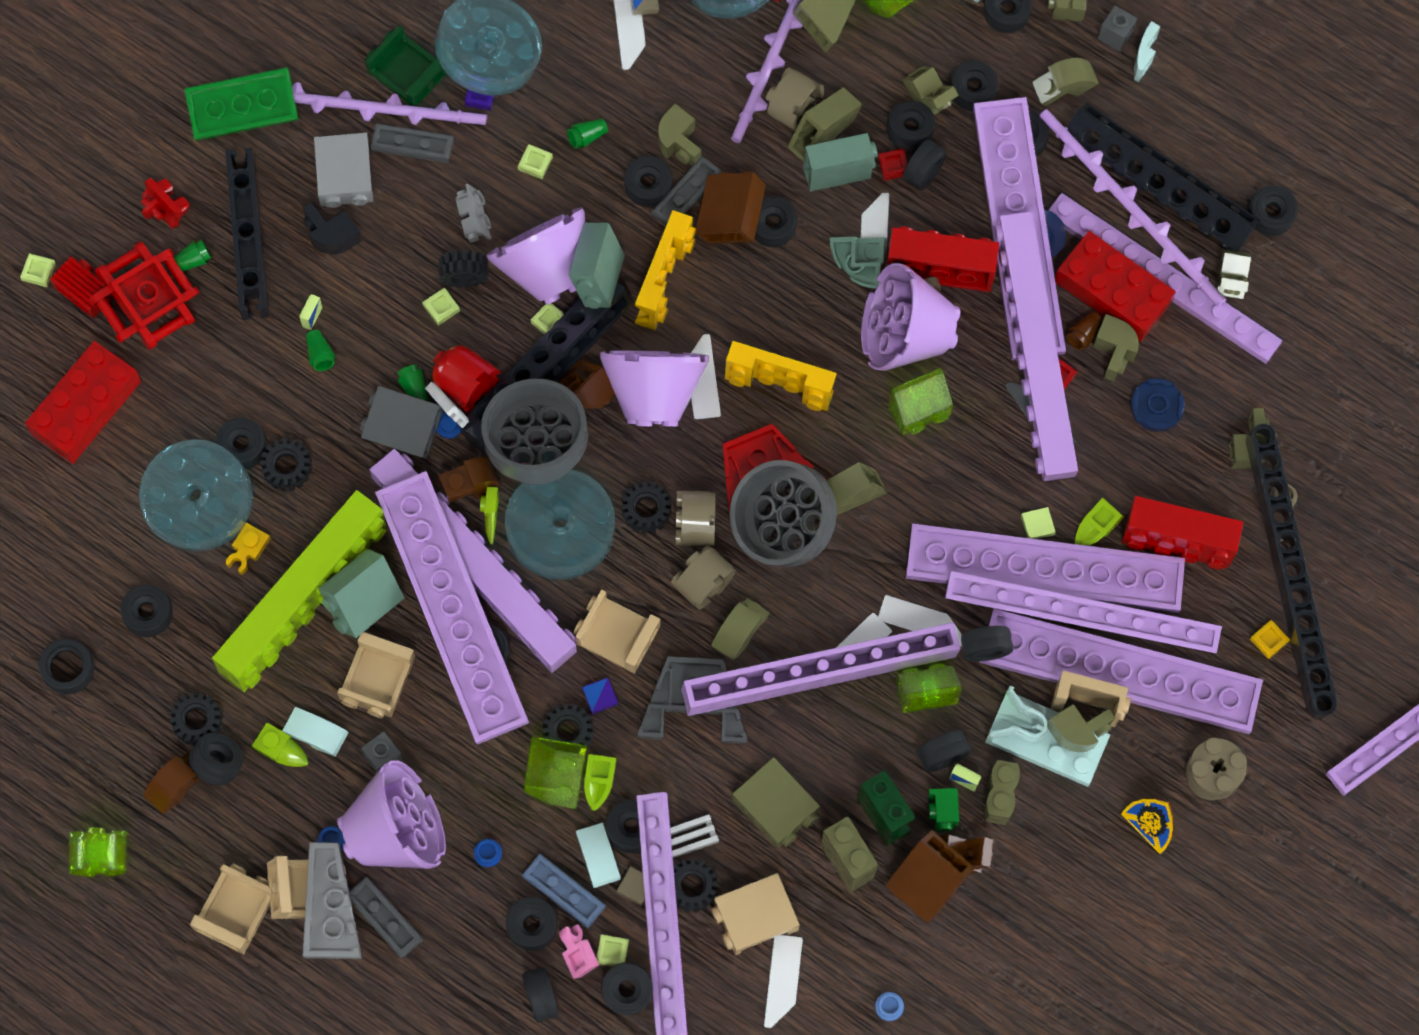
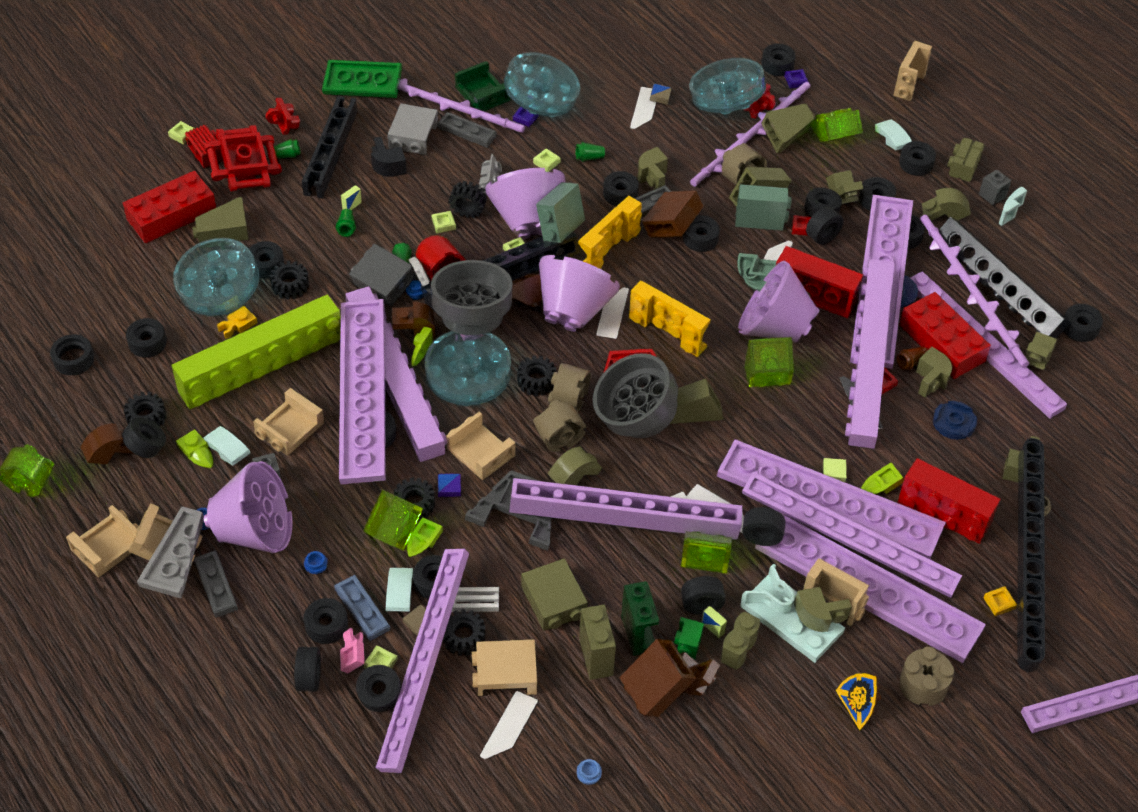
camera: 20 degrees right, 20 degrees down
(163, 407) = (222, 222): none -> olive slope
(361, 593) = (300, 362): sand green brick -> none

